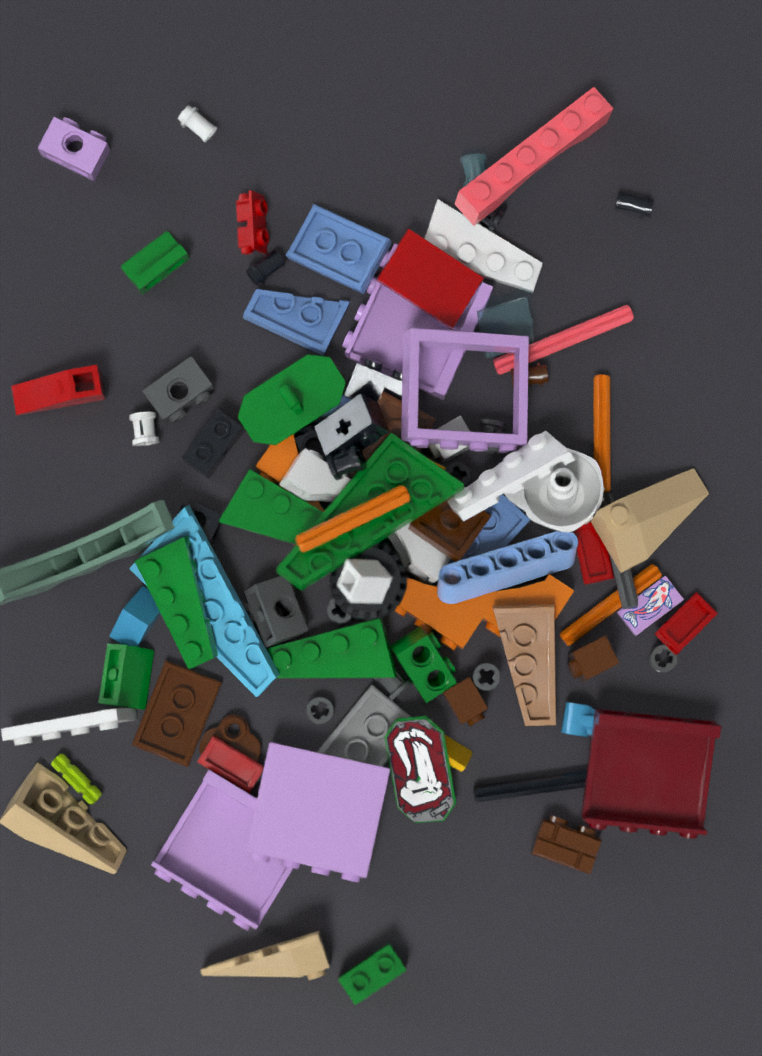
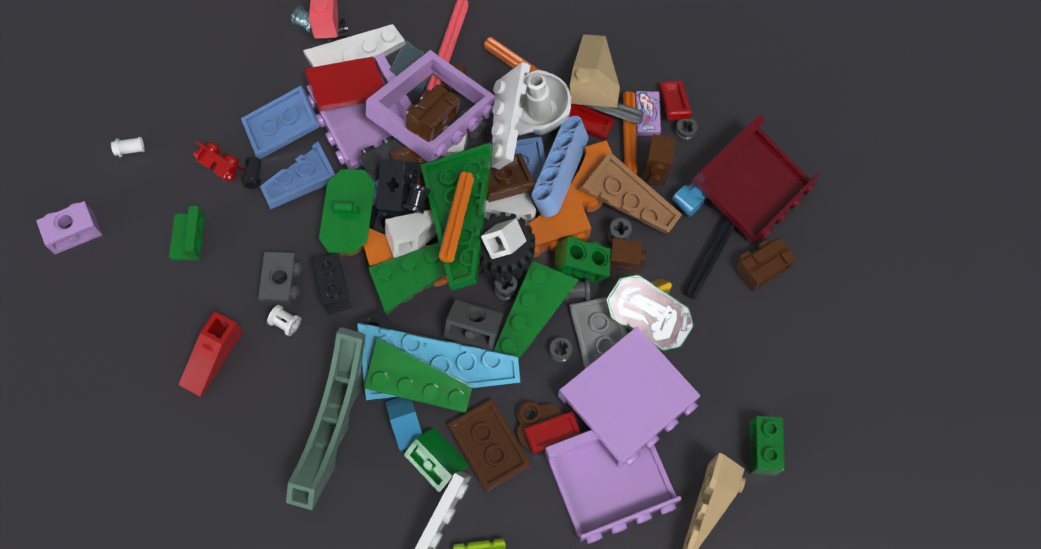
camera: 55 degrees left, 15 degrees down
(444, 406) = (432, 112): none -> reddish brown brick

